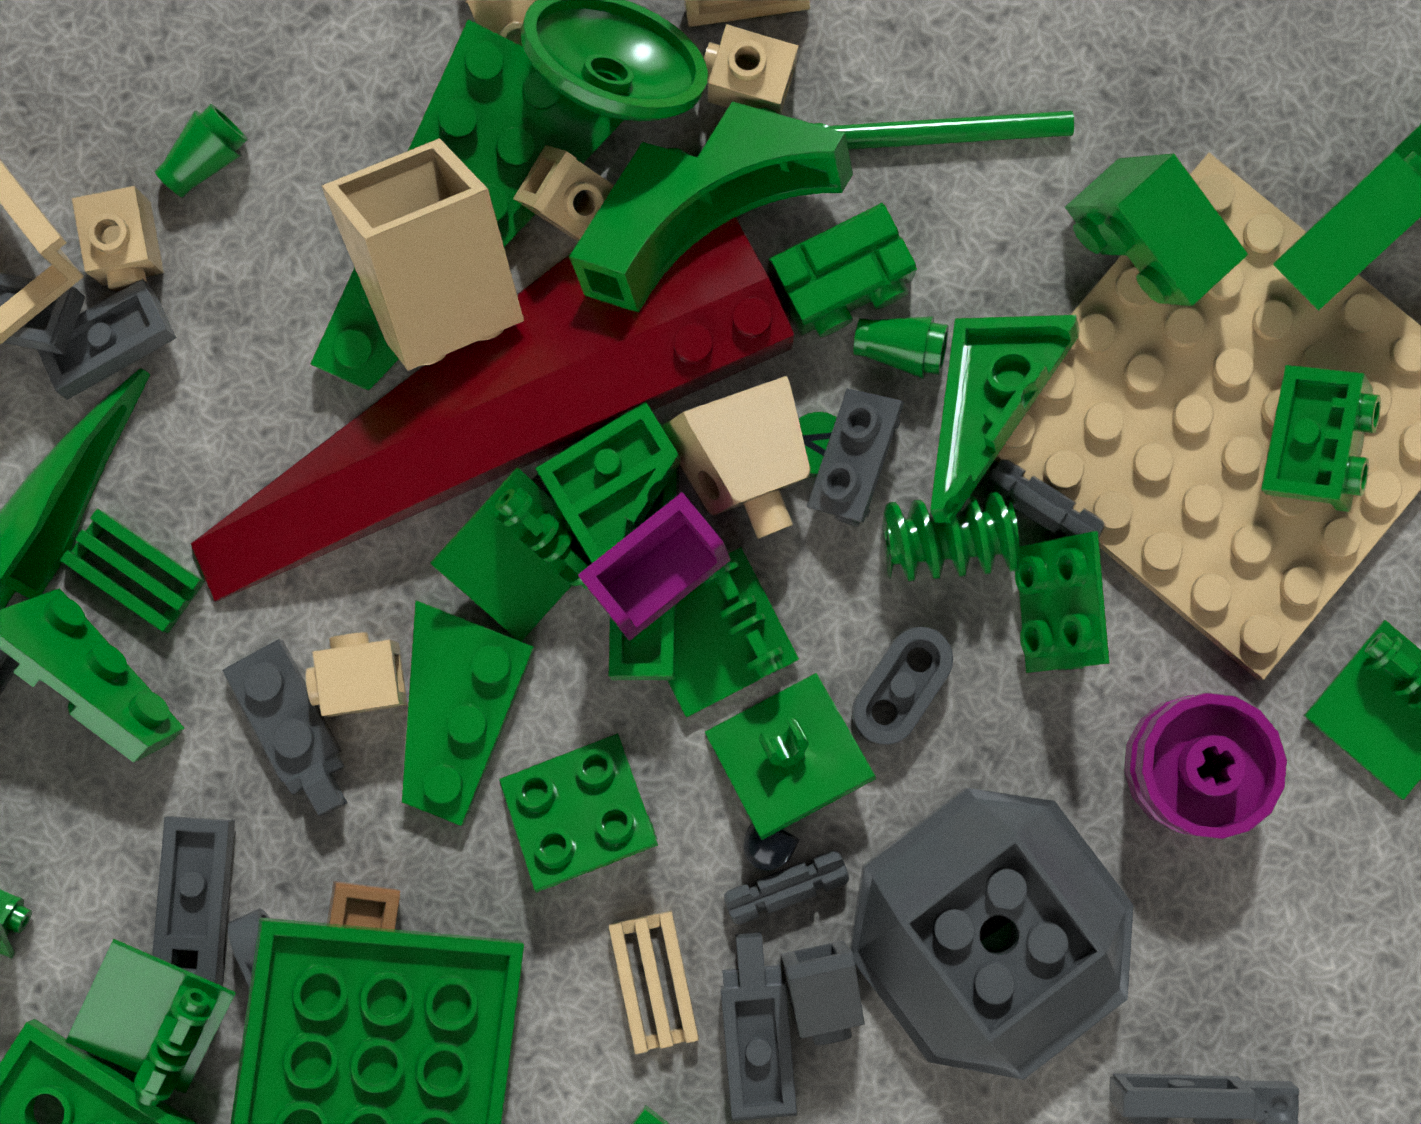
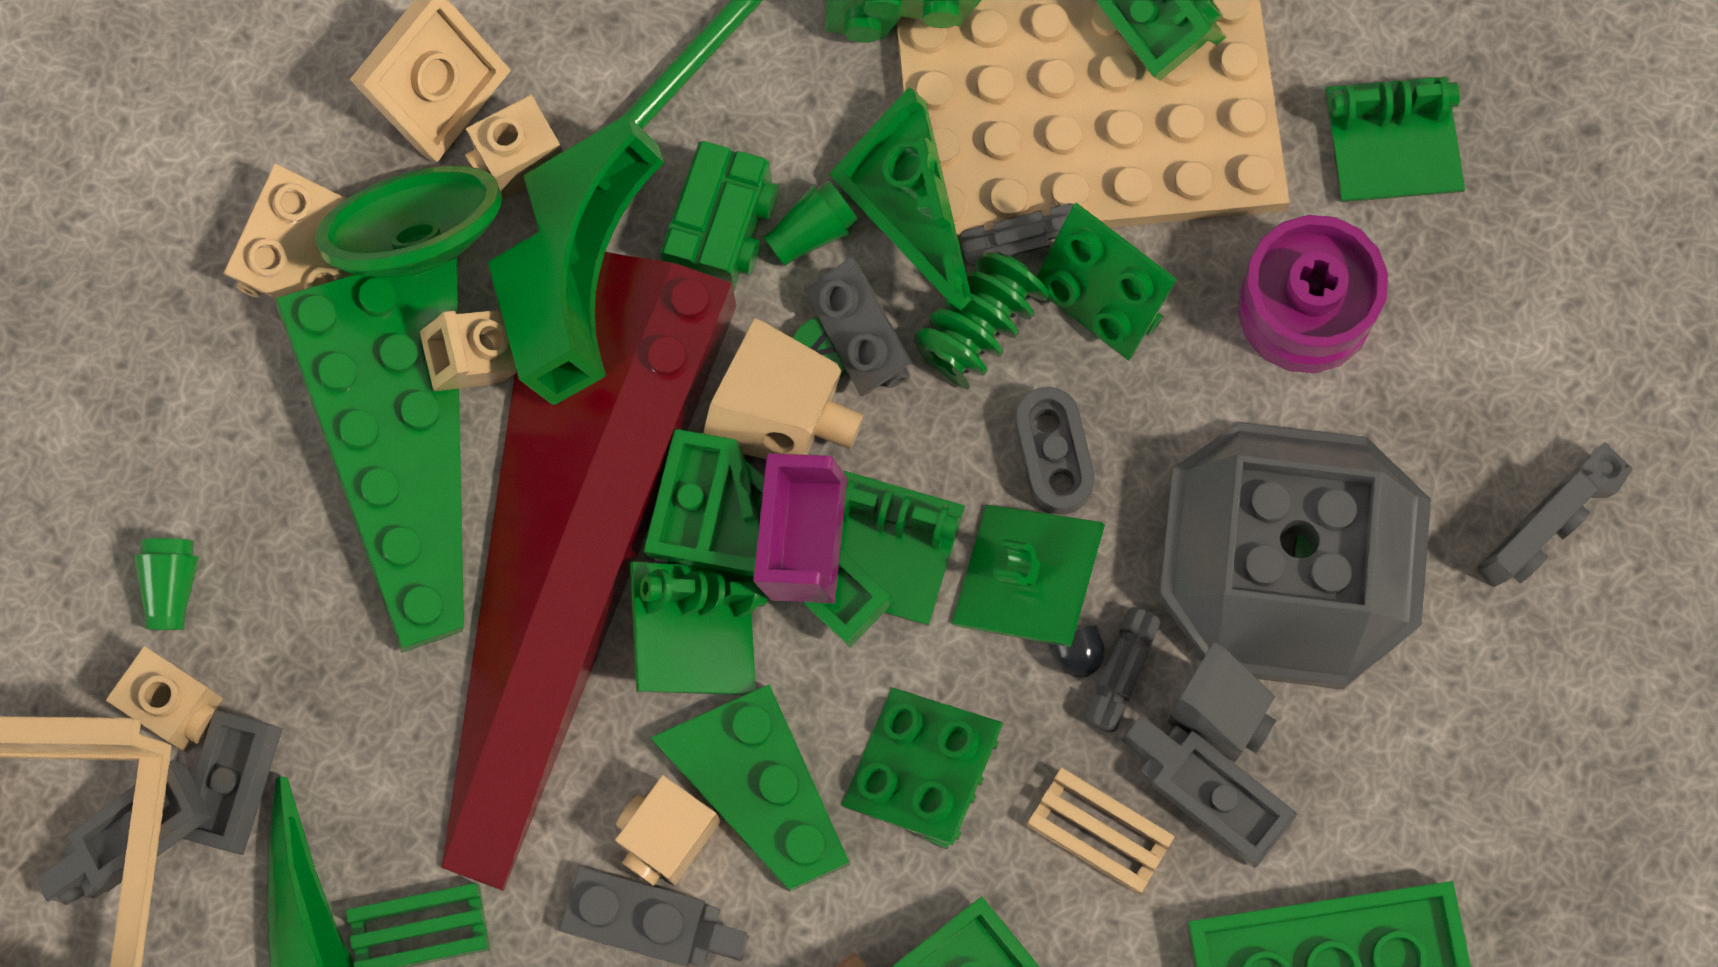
camera: 40 degrees left, 10 degrees down
(426, 252) = (412, 478): tan slope -> none

